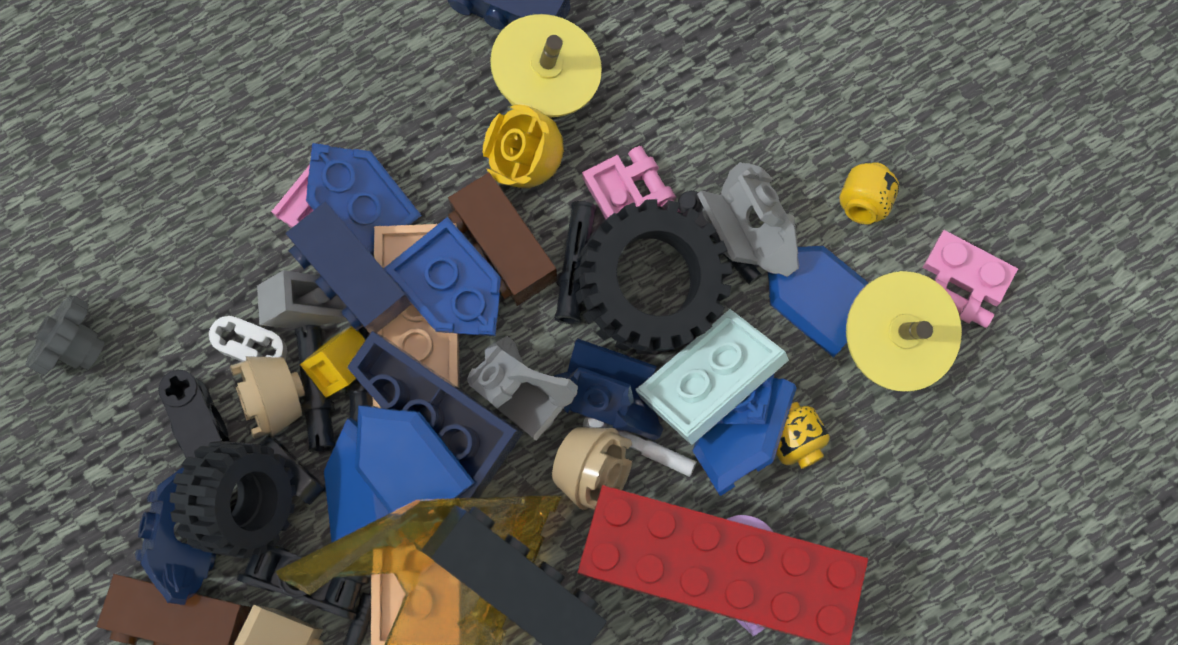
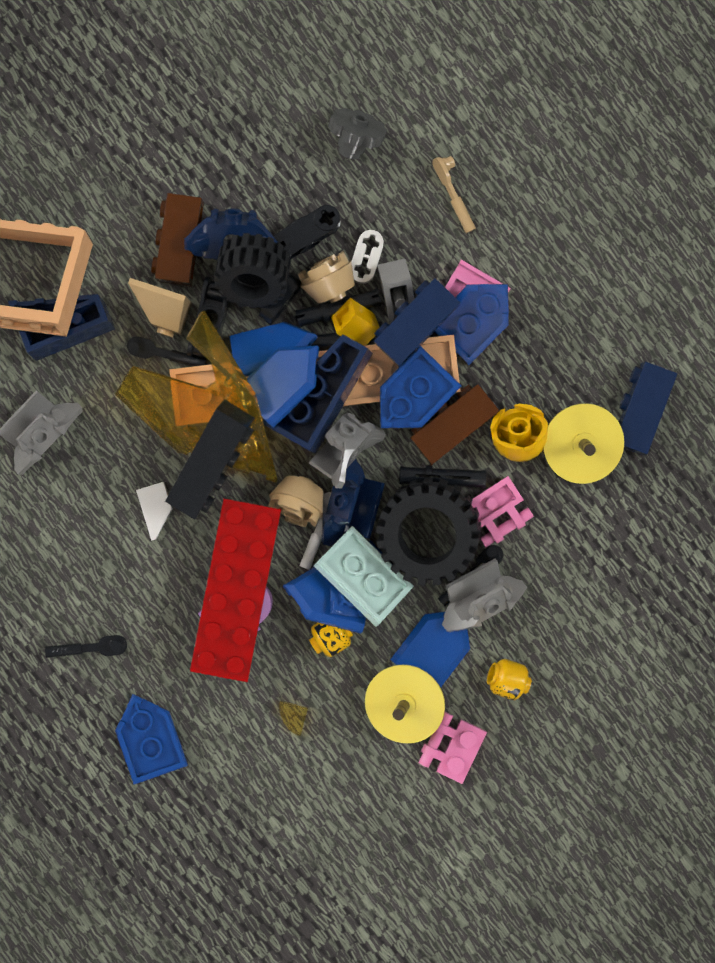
camera: 80 degrees right, 15 degrees up
(143, 230) = (442, 167): none -> tan piece
(916, 504) = (293, 716): none -> clear yellow tile

